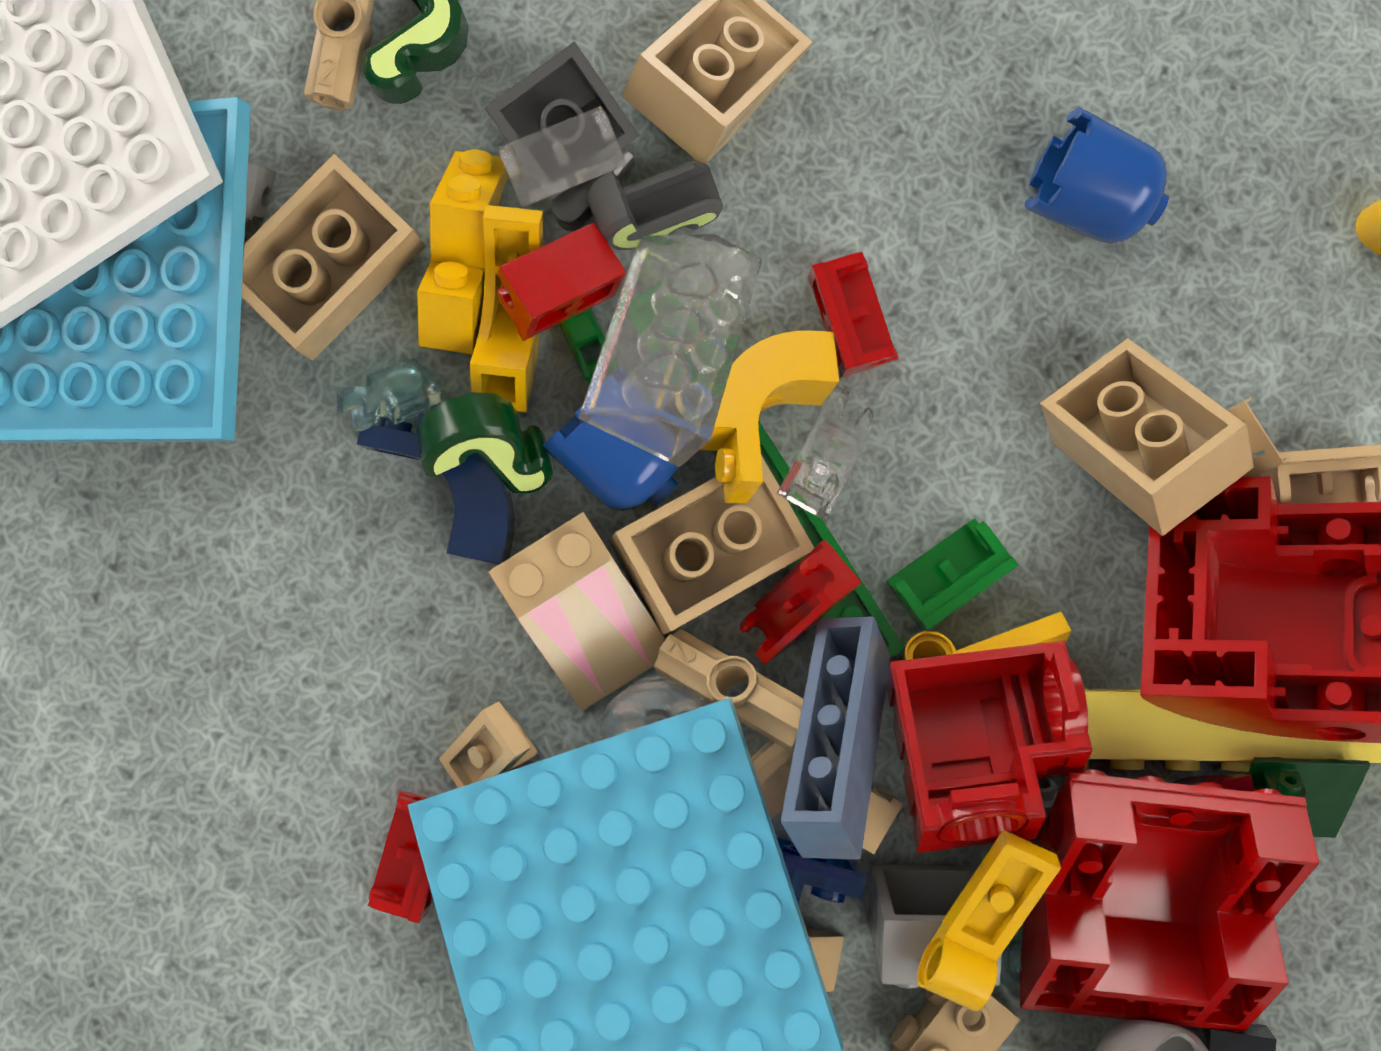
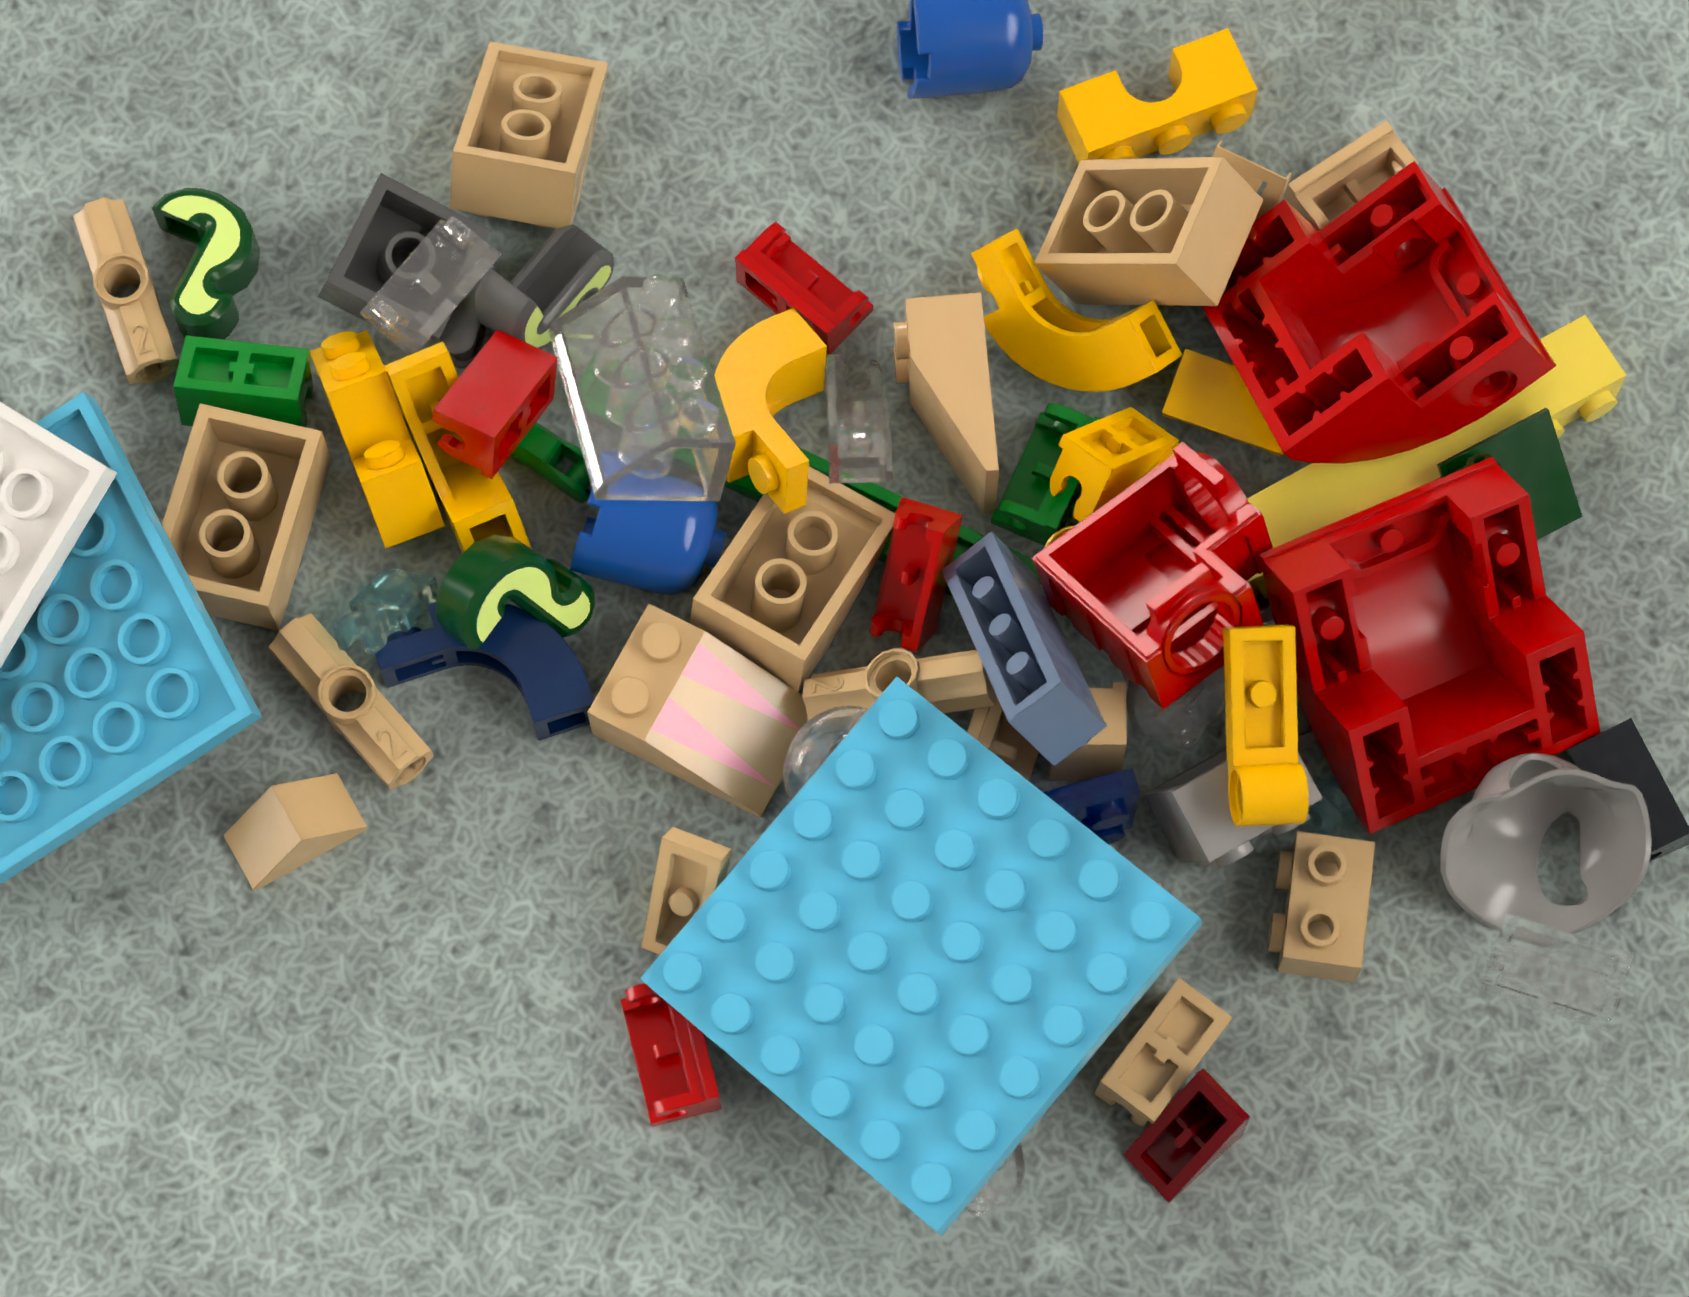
camera: 35 degrees left, 15 degrees down
(240, 522) = (293, 827): none -> tan slope
(334, 485) = (372, 729): none -> tan piece
(387, 151) = (243, 379): none -> green hinge
(917, 467) = (948, 380): none -> tan slope
(1002, 601) = (1108, 457): none -> yellow hinge
(1024, 480) = (1058, 342): none -> yellow arch
(1114, 594) = (1217, 400): none -> yellow hinge
(1265, 330) = (1210, 95): none -> yellow arch

